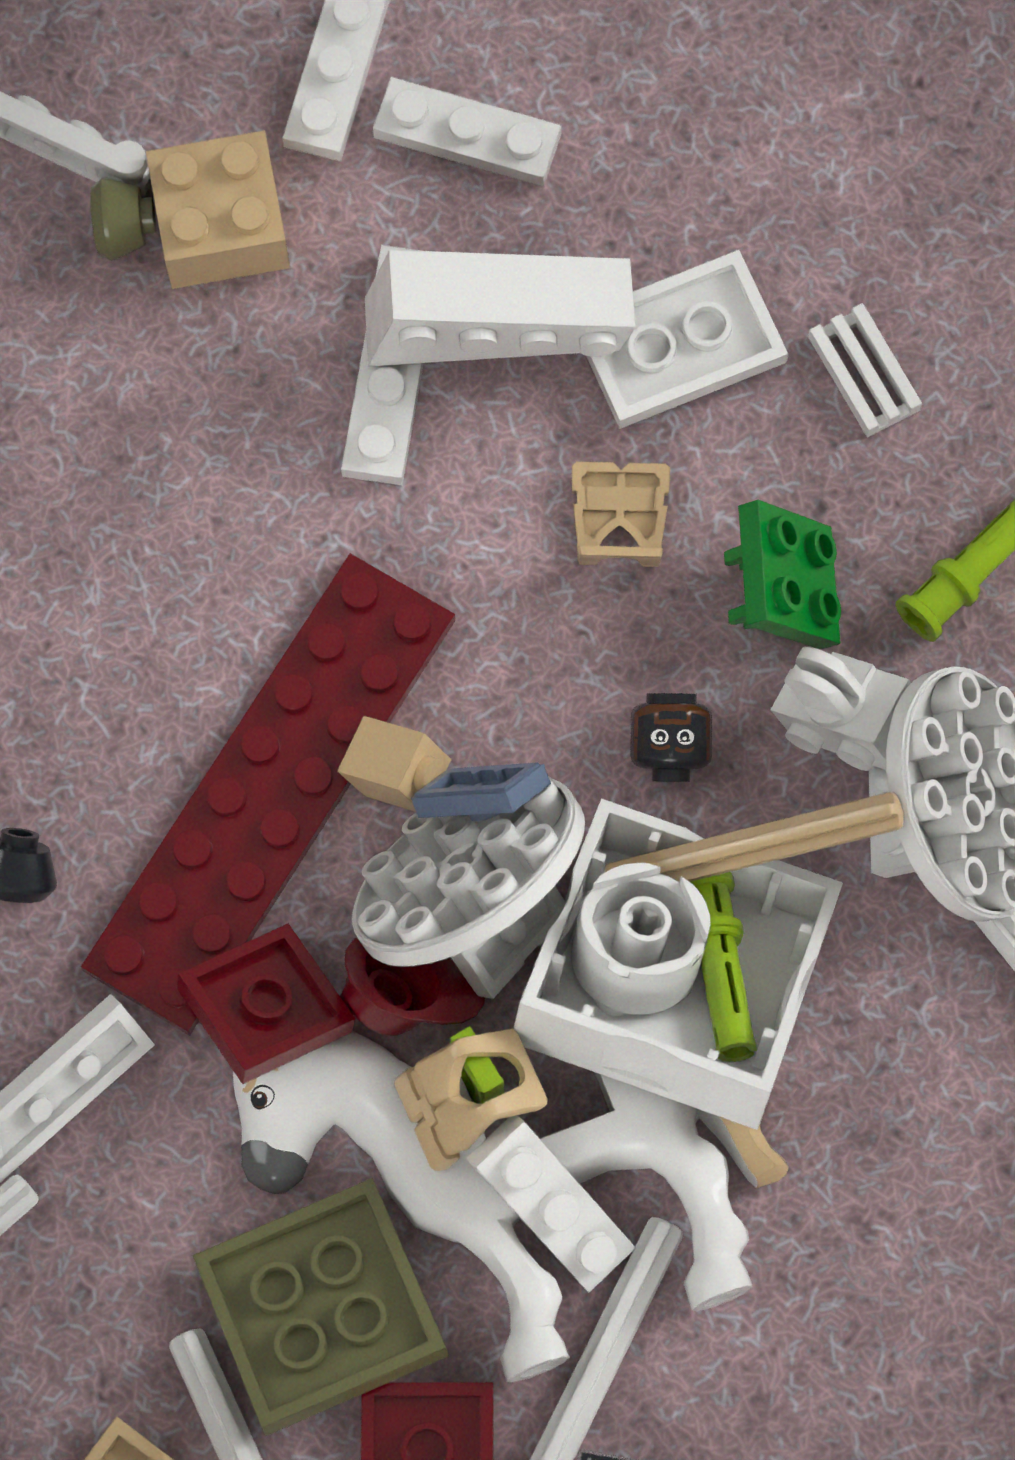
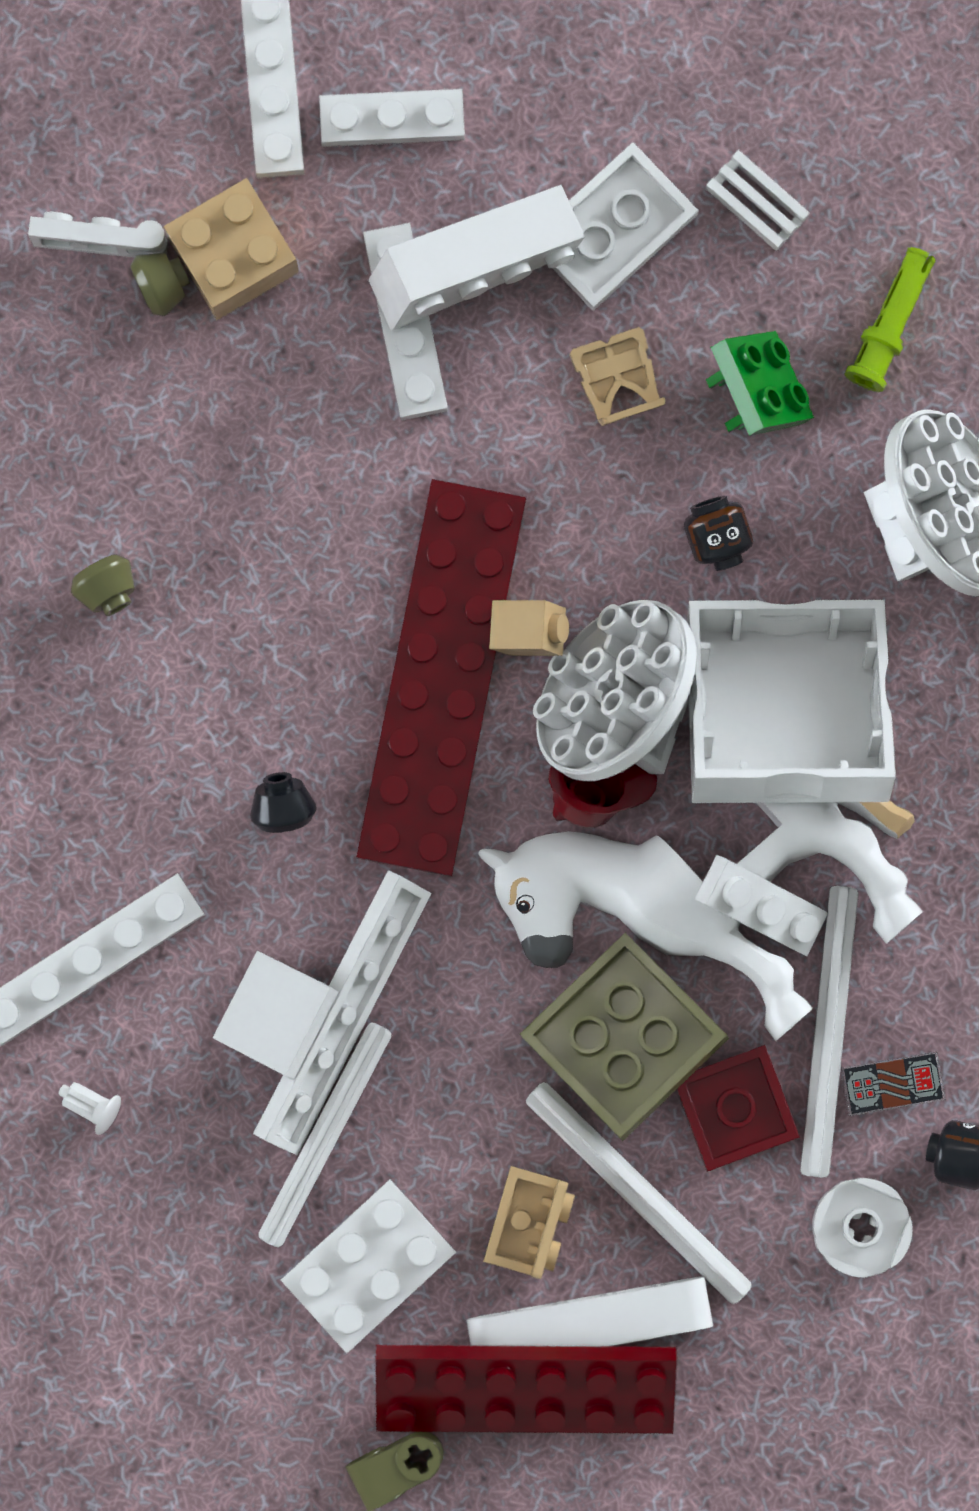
camera: 25 degrees left, 10 degrees up
(265, 1003) = (503, 836): dark red plate -> none
(444, 1117) = (671, 877): tan piece -> none
(479, 1074) = (674, 831): lime tile -> none
(481, 791) = (604, 629): sand blue plate -> none
(639, 940) = (758, 696): white brick -> none
(723, 972) = (807, 672): lime pin -> none
(776, 839) = (815, 599): tan axle -> none
(839, 706) = (838, 469): white brick -> none

